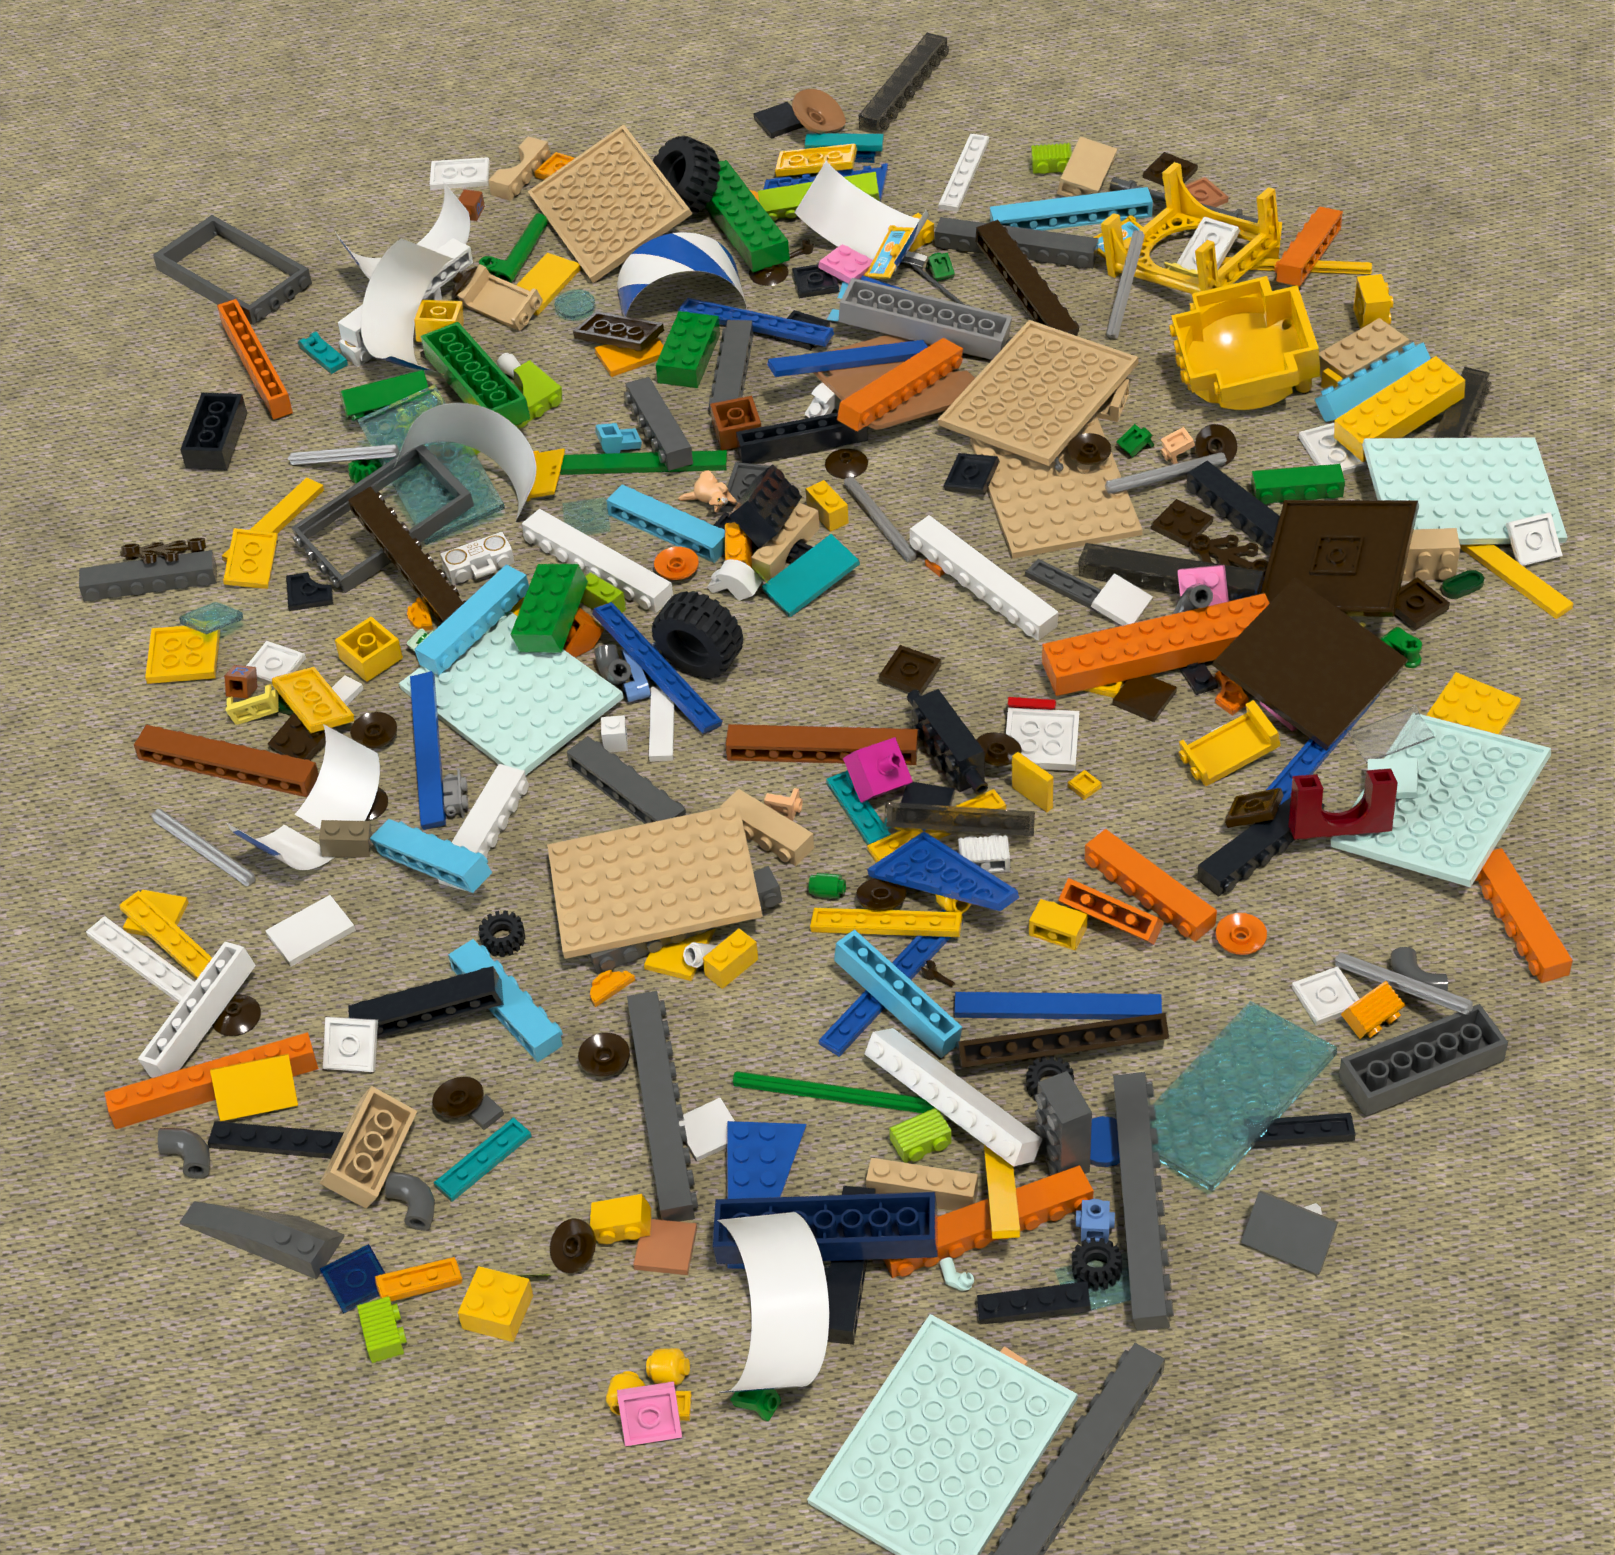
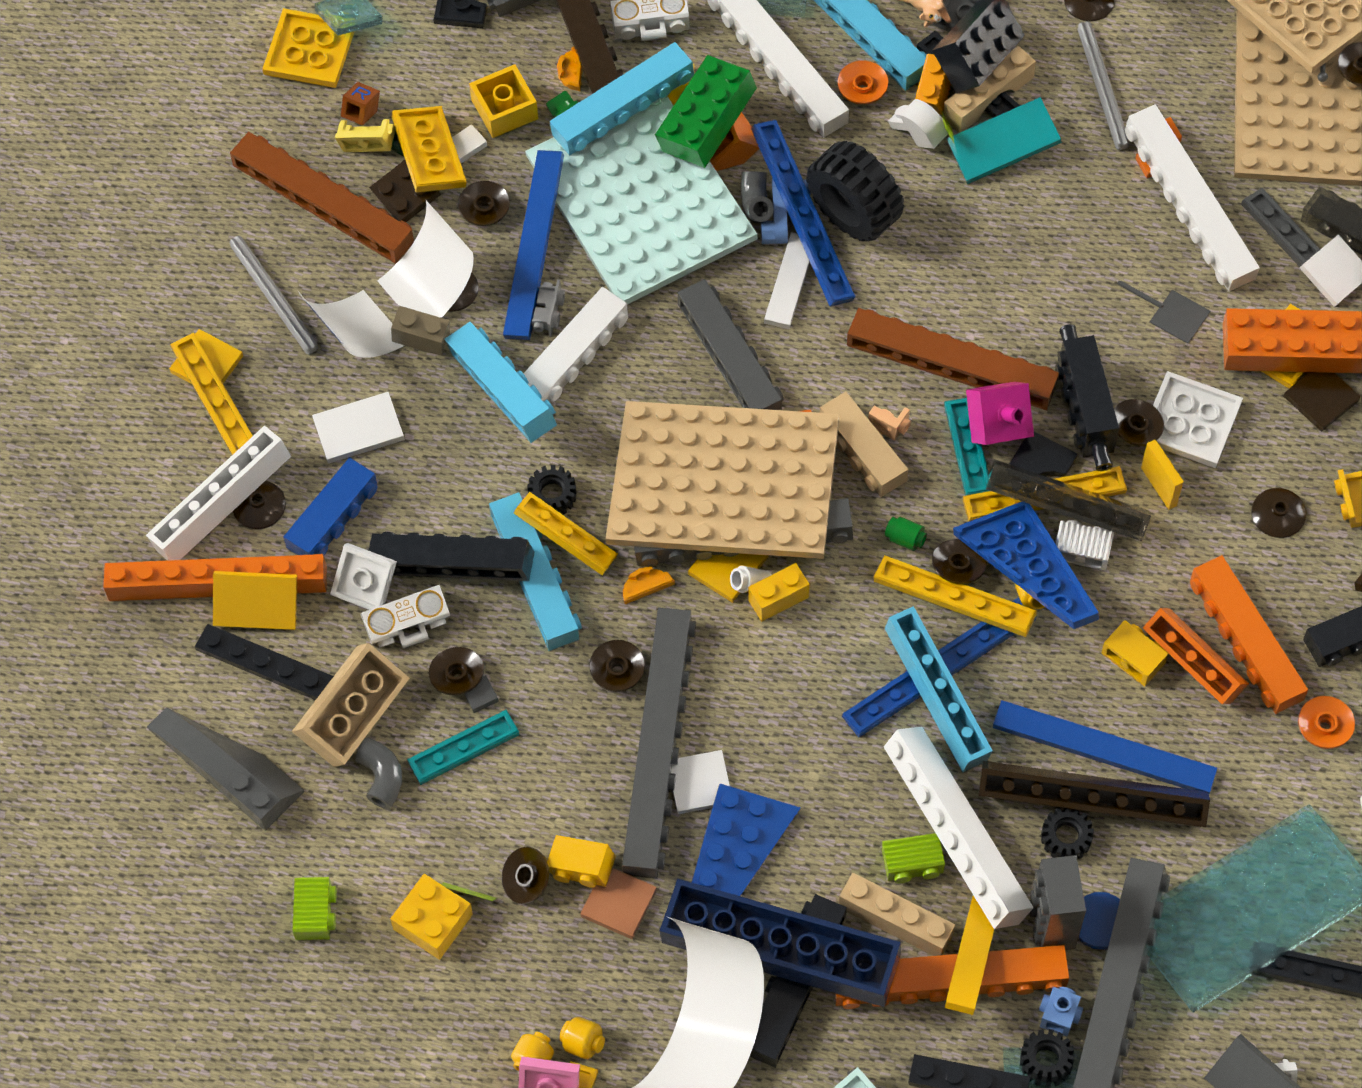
camera: 15 degrees right, 15 degrees up
(140, 958) = (180, 412): white tile -> none
(190, 1146) = (175, 644): dark grey cylinder -> none
(274, 661) = (402, 86): white tile -> none
(305, 997) = (331, 509): none -> blue brick
(353, 1278) = (303, 843): clear blue tile -> none
(397, 1062) = (419, 609): none -> white piece
(419, 1279) = (364, 865): light orange tile -> none
(525, 961) = (565, 533): none -> yellow tile
(600, 592) = (771, 102): lime brick -> none
(614, 733) = (734, 282): white brick -> none
(830, 506) = (1049, 54): yellow brick -> none
(831, 1092) = (835, 777): green axle -> none
(909, 670) = (1075, 291): dark brown plate -> none
(932, 973) = (986, 671): dark brown hand -> none
(954, 1279) = (897, 1027): light aqua arm -> none
(971, 473) = (1222, 56): black tile -> none
(998, 668) = (1176, 314): none -> dark grey piece
(1031, 703) = (1194, 373): red tile -> none
(1084, 784) = (1219, 488): yellow tile -> none
(1140, 790) = (1278, 523): none -> dark brown dish

